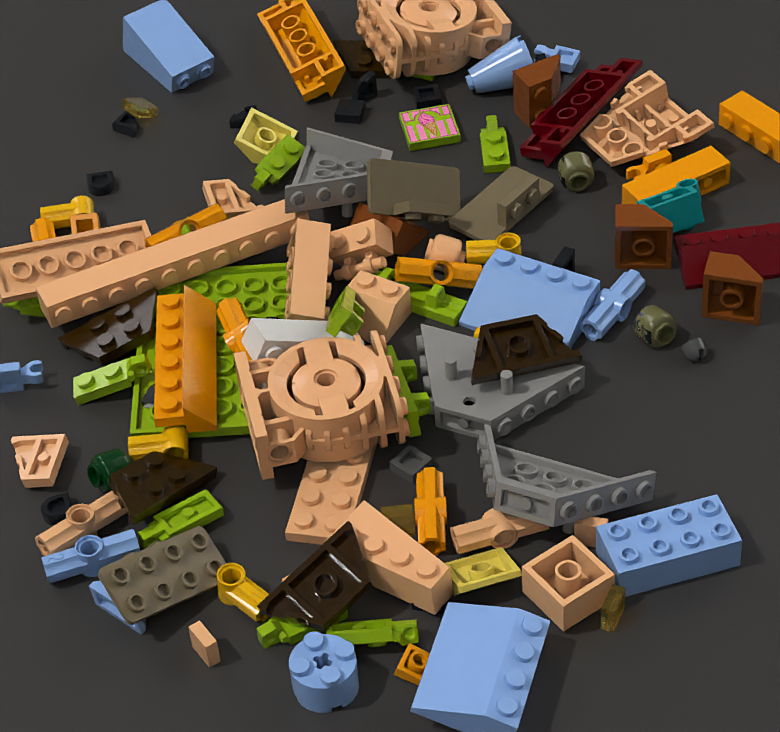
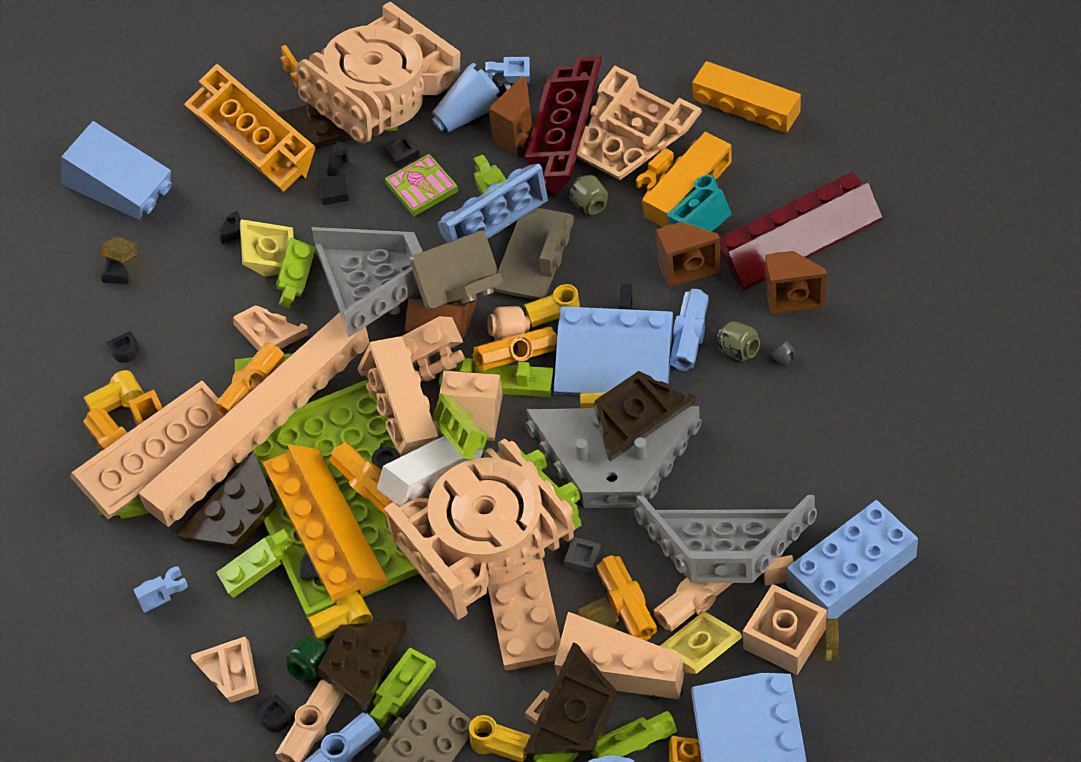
camera: 20 degrees left, 10 degrees up
(483, 149) = (497, 206): none -> light blue slope

